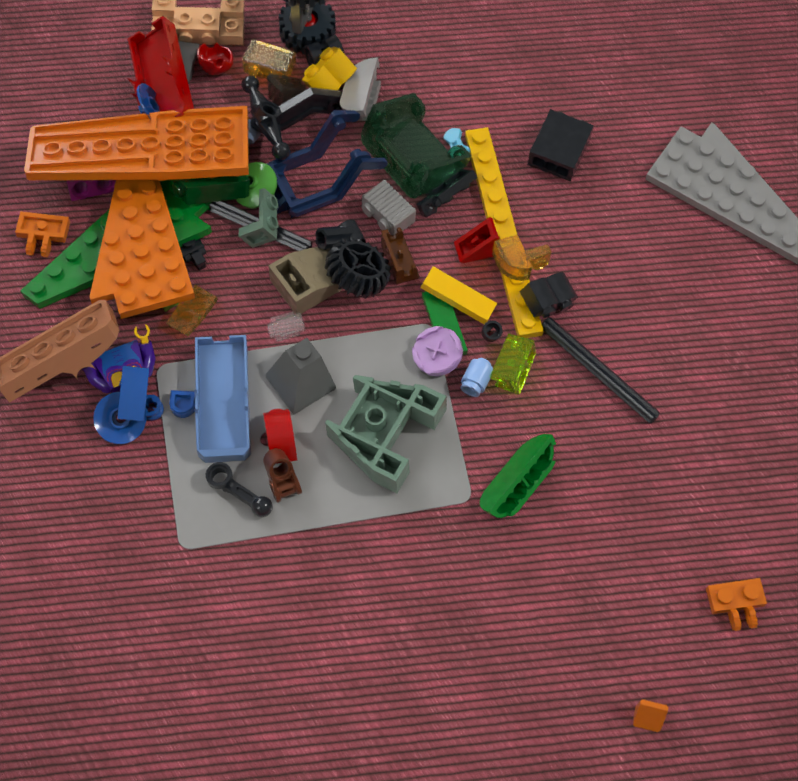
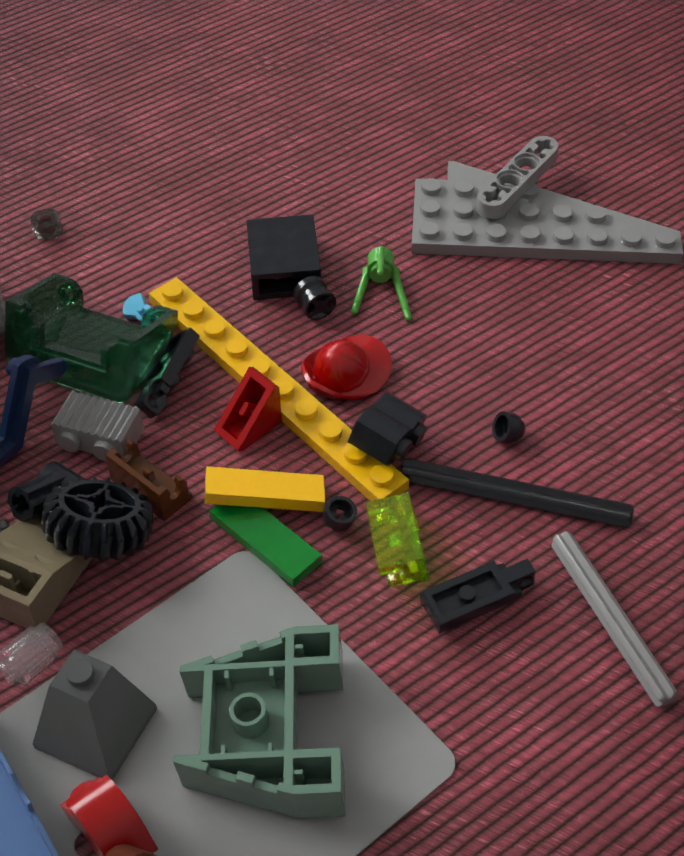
camera: 25 degrees left, 15 degrees down
(425, 50) = (46, 224): none -> clear smoke bush
(437, 351) = (280, 576): lavender tile -> none
(476, 377) = (358, 583): light blue brick -> none
(515, 261) = (319, 406): clear yellow brick -> none
(519, 477) = (510, 691): green brick -> none
(537, 416) = (476, 593): none -> black hinge
(561, 184) = (314, 297): none -> black wheel
(561, 235) = (348, 368): none -> red hat
(603, 468) = (614, 620): none -> light grey axle
(614, 183) = (381, 268): none -> bright green plant
(622, 328) = (508, 427): none -> black hinge
(747, 163) = (511, 173): none -> light grey beam

